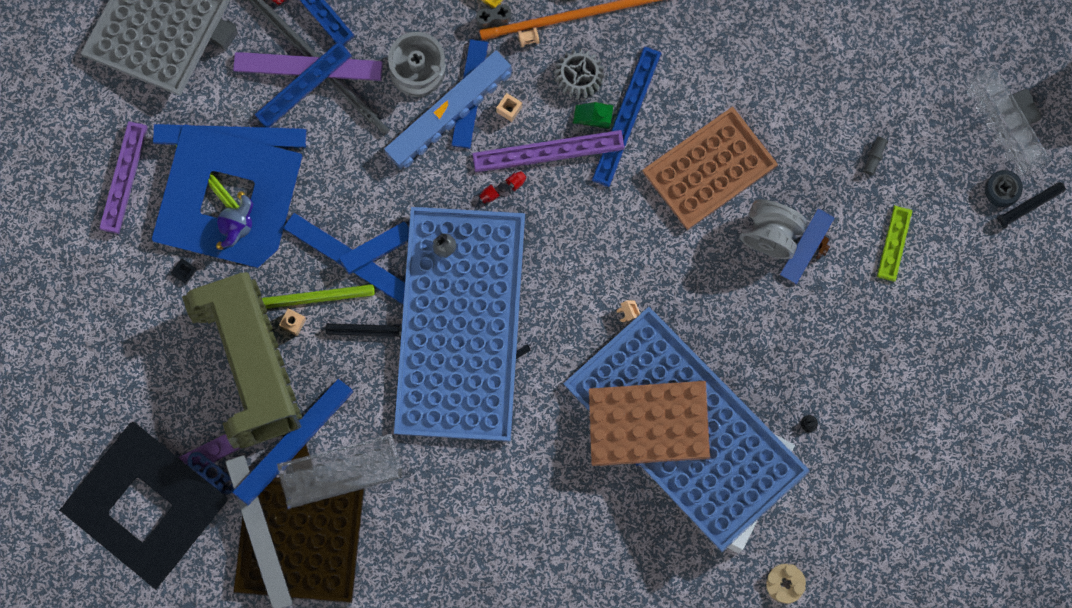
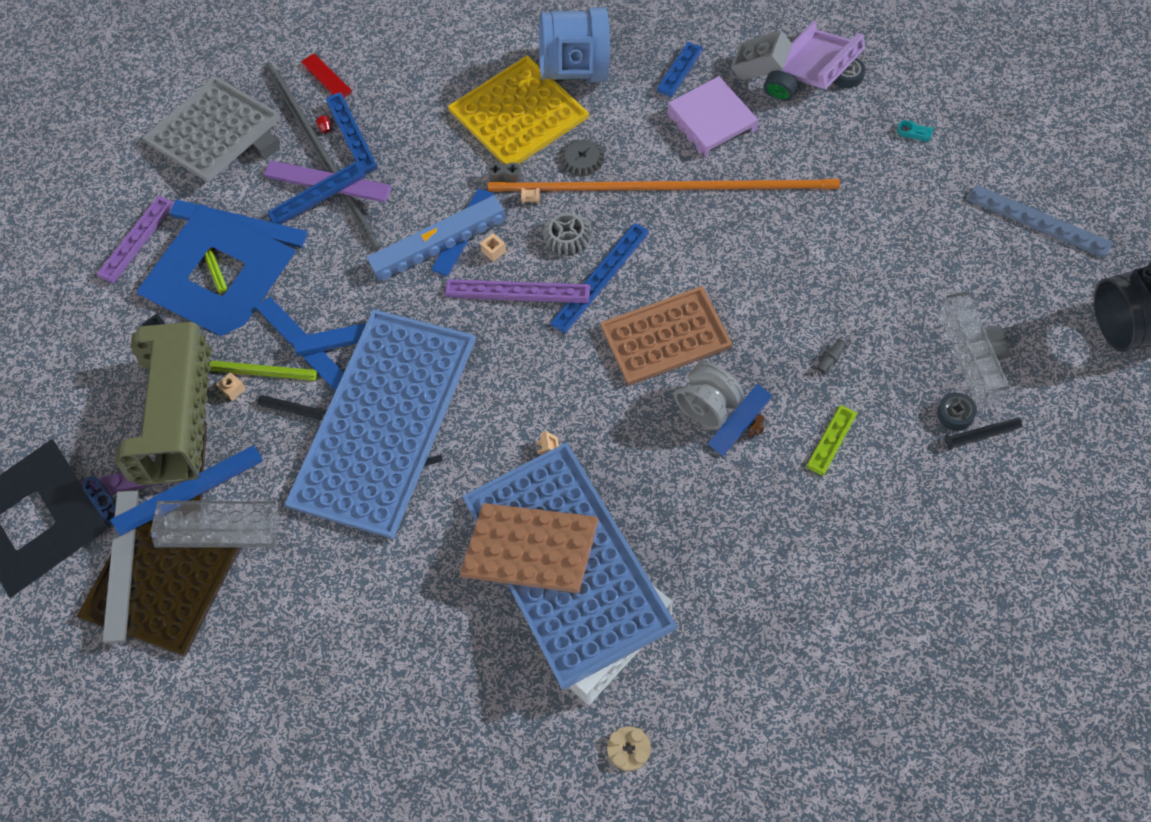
camera: 25 degrees right, 15 degrees down
(235, 222) = (212, 290): piece -> none
(416, 64) = (421, 195): light grey piece -> none
(444, 245) = (388, 344): dark grey piece -> none
(488, 194) = (450, 316): red hose -> none
(516, 179) = (480, 309): red hose -> none
(593, 114) = (570, 268): green slope -> none
(809, 423) = (699, 591): black piece -> none

